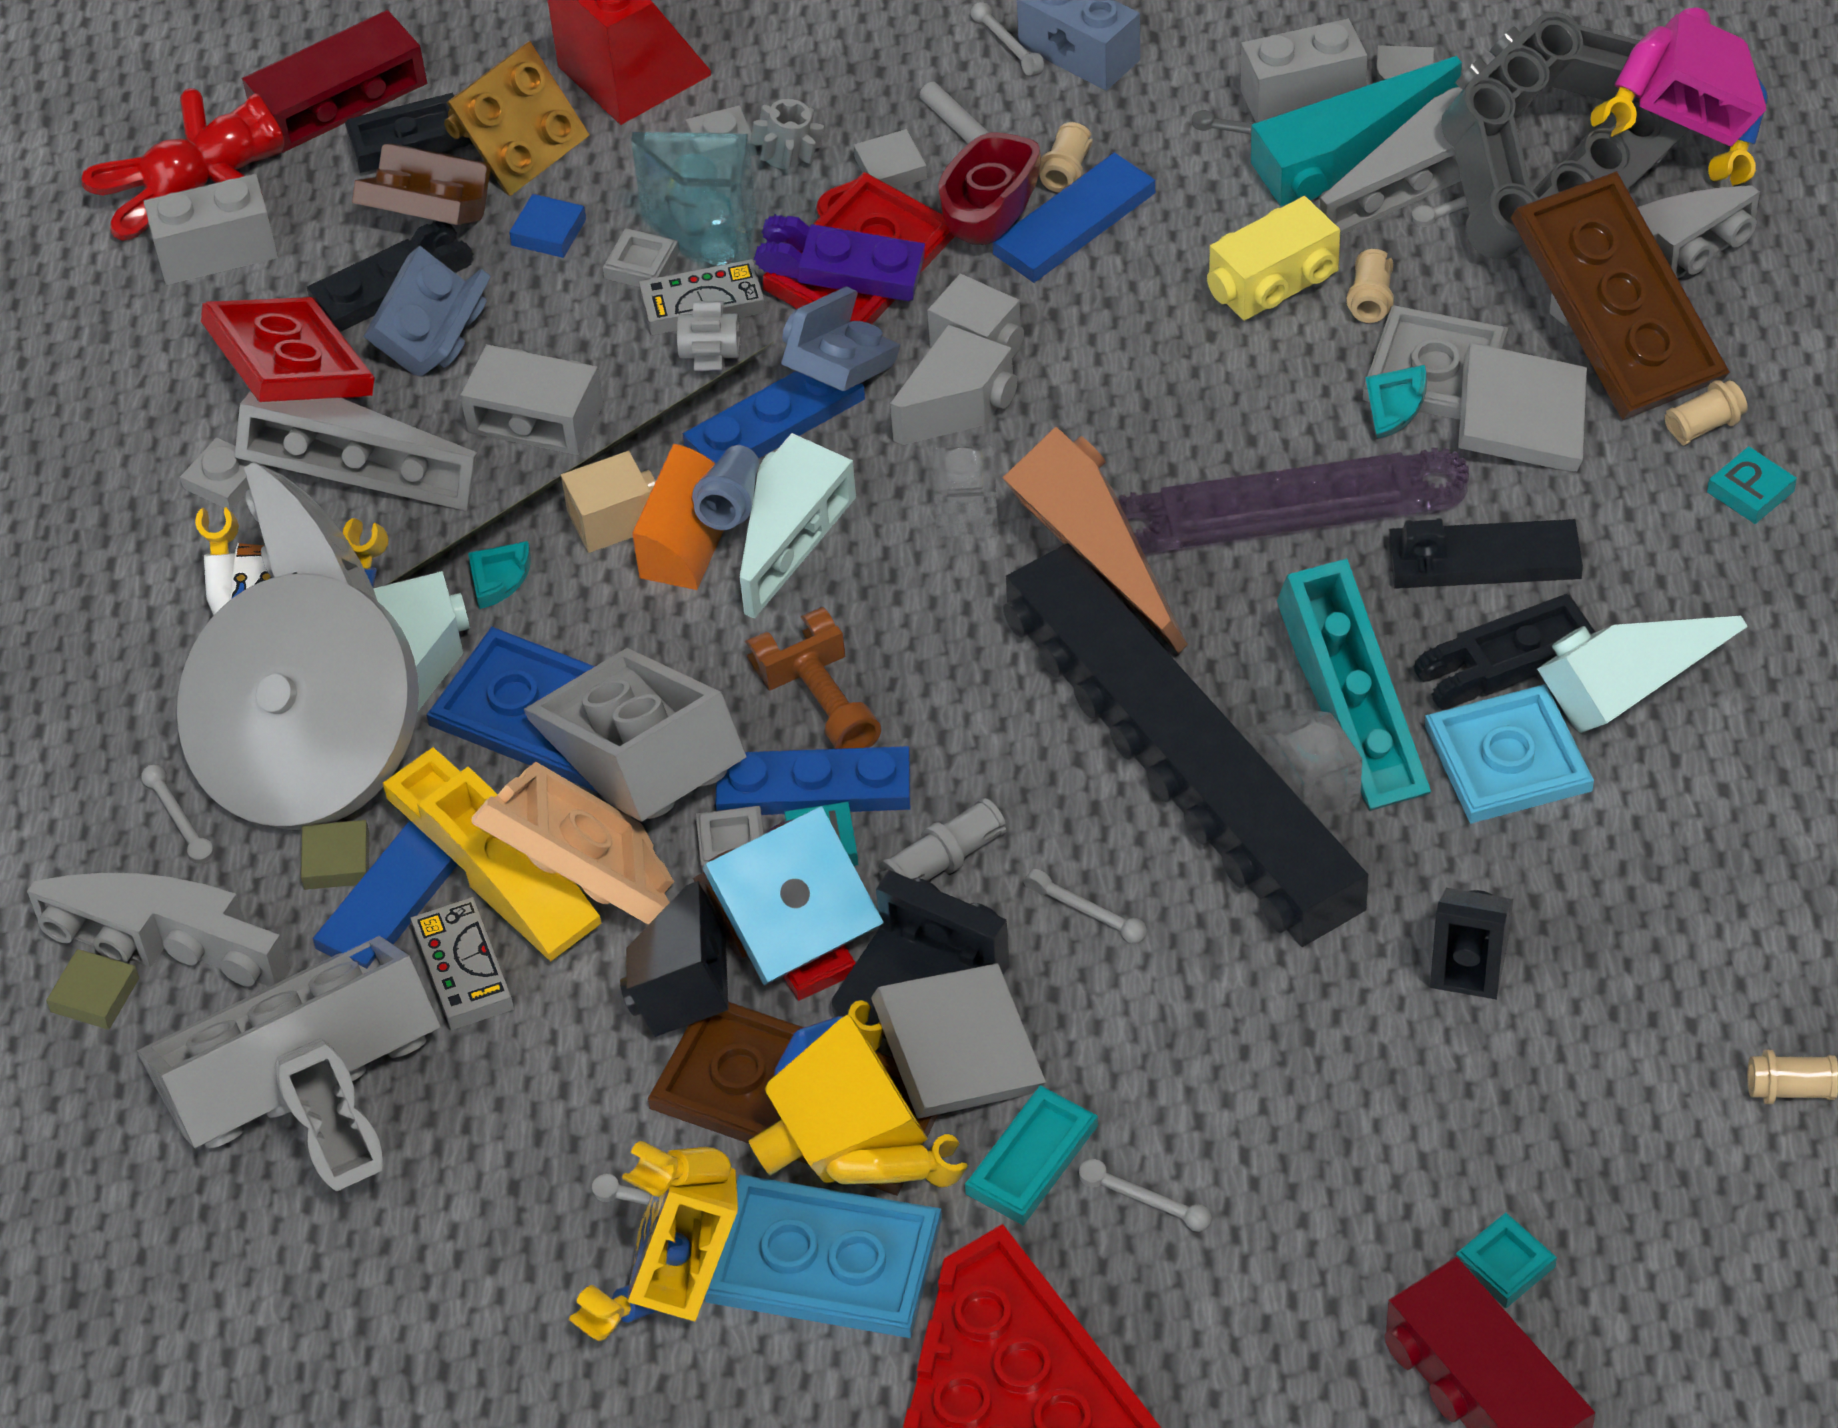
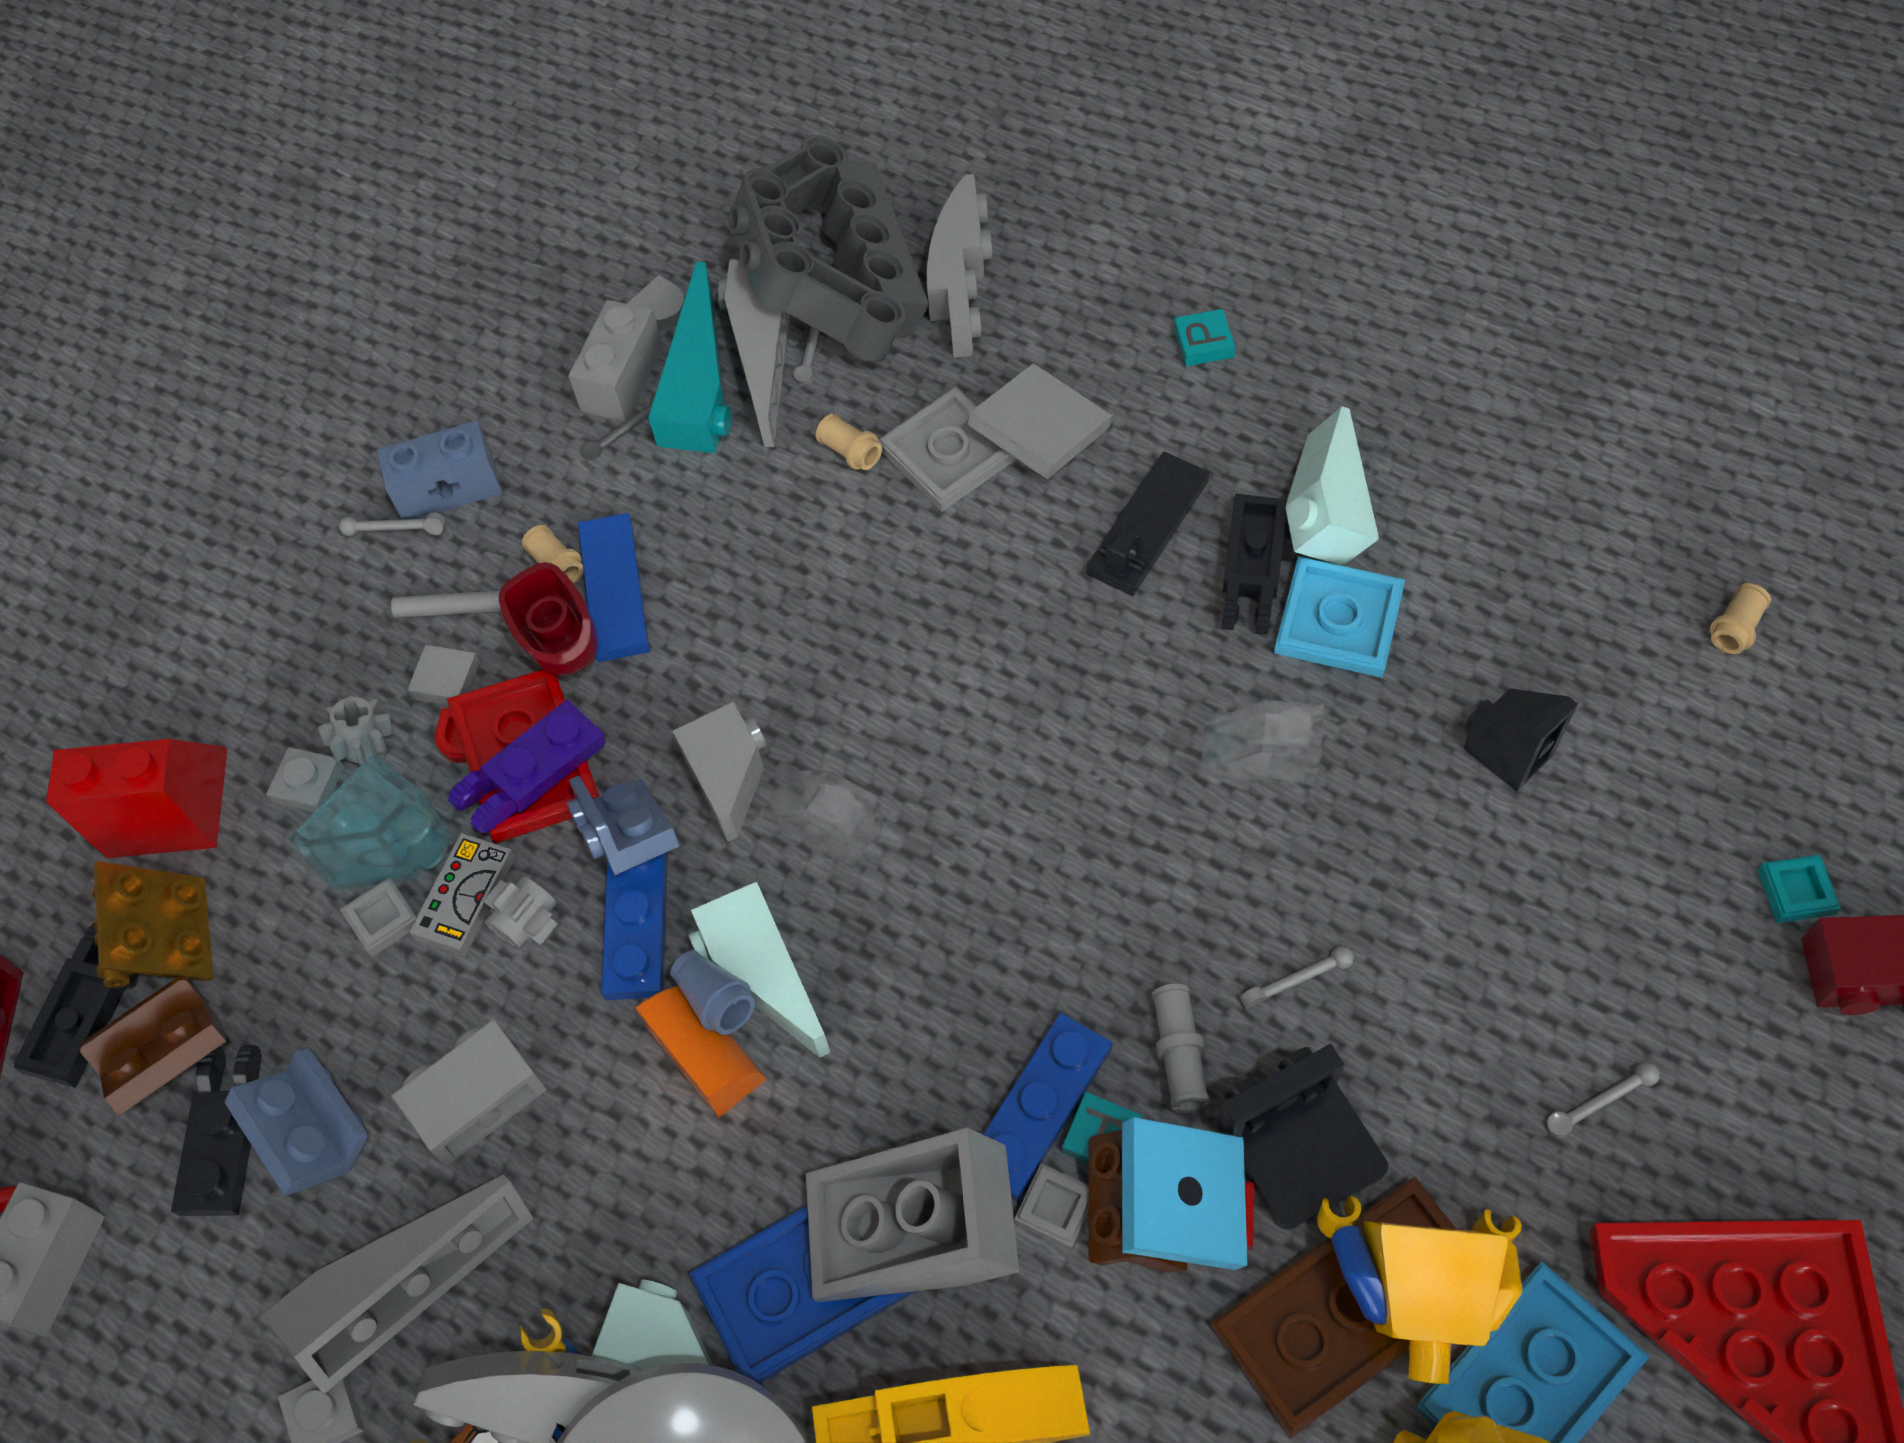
camera: 55 degrees left, 10 degrees up
(286, 349) = (243, 1274): red tile -> none
(499, 570) = (626, 1232): teal tile -> none
(547, 225) = (278, 968): blue tile -> none
(579, 838) = (1014, 1339): light nougat wing -> none
(583, 463) = (574, 1115): olive sticker -> none
(606, 499) = (633, 1093): tan brick -> none
(678, 965) = (1182, 1330): black slope -> none
(807, 660) = (893, 1009): dark orange bar -> none
(957, 1040) = (1397, 1151): light grey tile -> none
(977, 310) = (667, 706): light grey brick -> none
(1031, 1155) = (1520, 1160): teal tile -> none
(1074, 501) = (939, 748): nougat slope -> none
(1186, 746) = (1197, 816): black brick -> none
(1273, 258) = (781, 482): light yellow brick -> none
(1296, 499) = (1008, 617): clear purple plate -> none
(1351, 679) = (1208, 669): teal slope -> none
(1396, 398) = (970, 489): teal tile -> none
(1619, 295) = (998, 302): reddish brown tile -> none
(1696, 80) = (868, 143): dark pink torso -> none
(1712, 409) = (1125, 311): tan pin -> none

